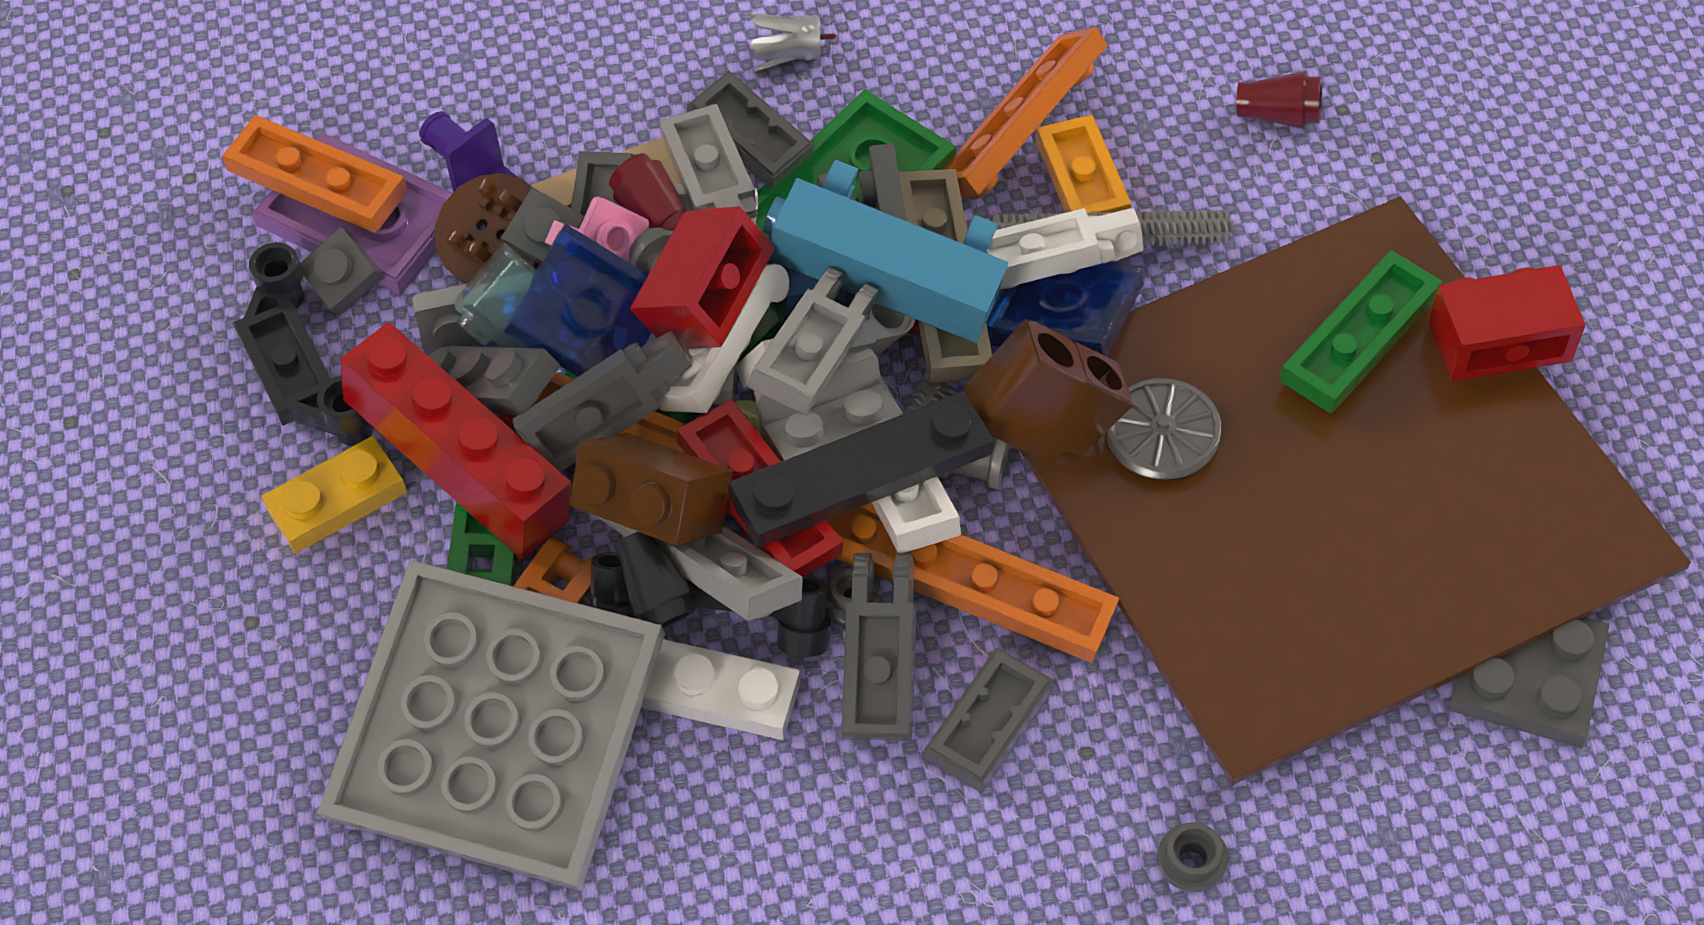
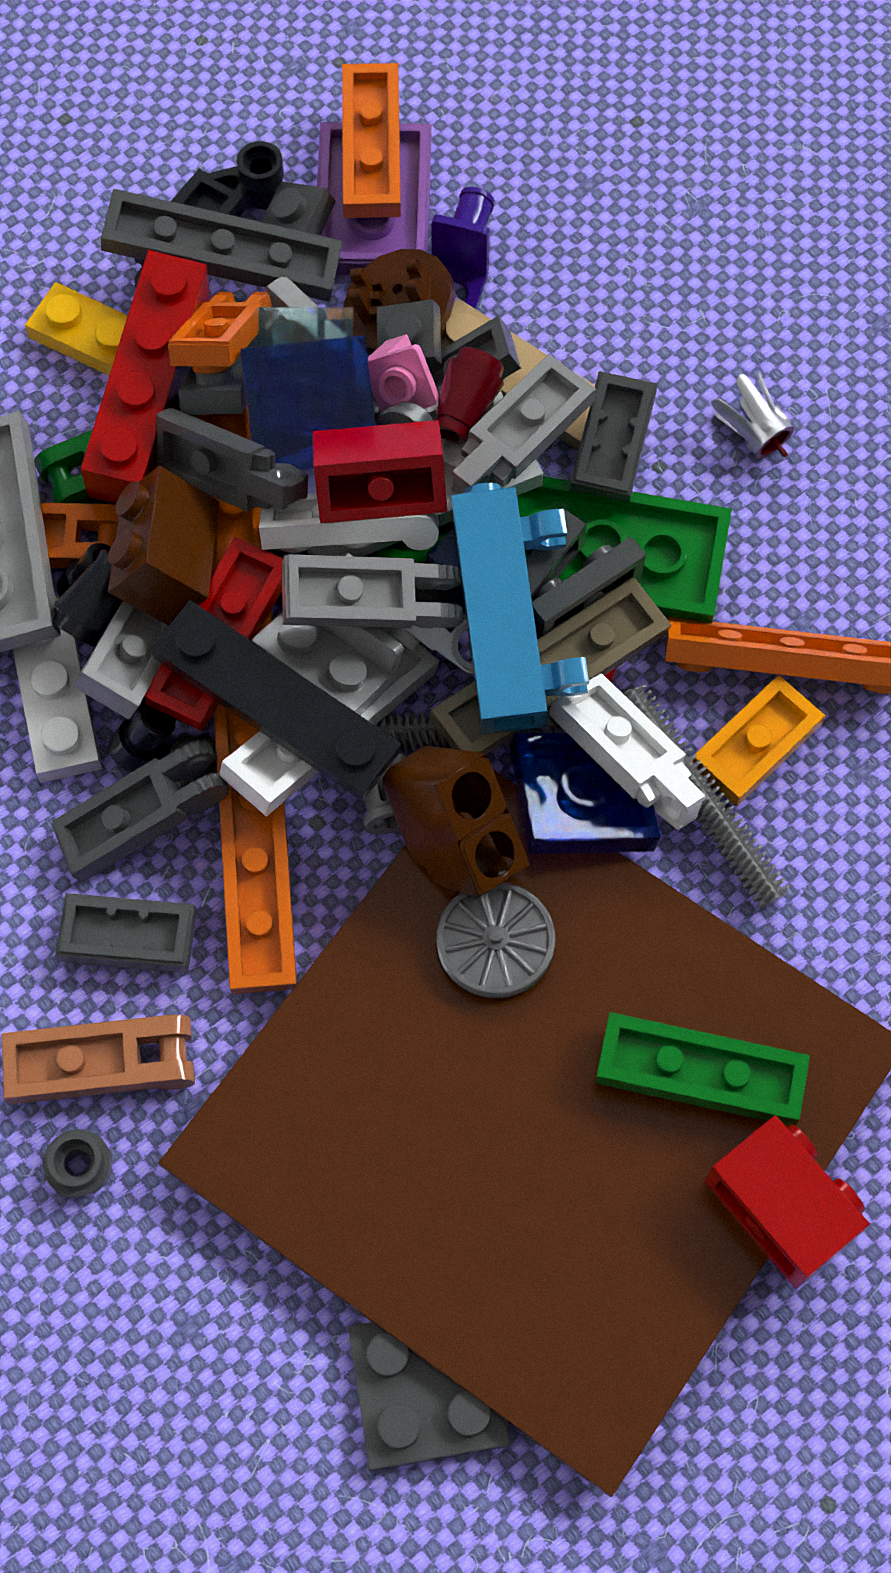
camera: 60 degrees right, 10 degrees up
(310, 352) = (227, 243): none -> dark grey plate
(468, 344) = (217, 333): none -> orange hinge
(1099, 799) = (95, 1059): none -> nougat plate

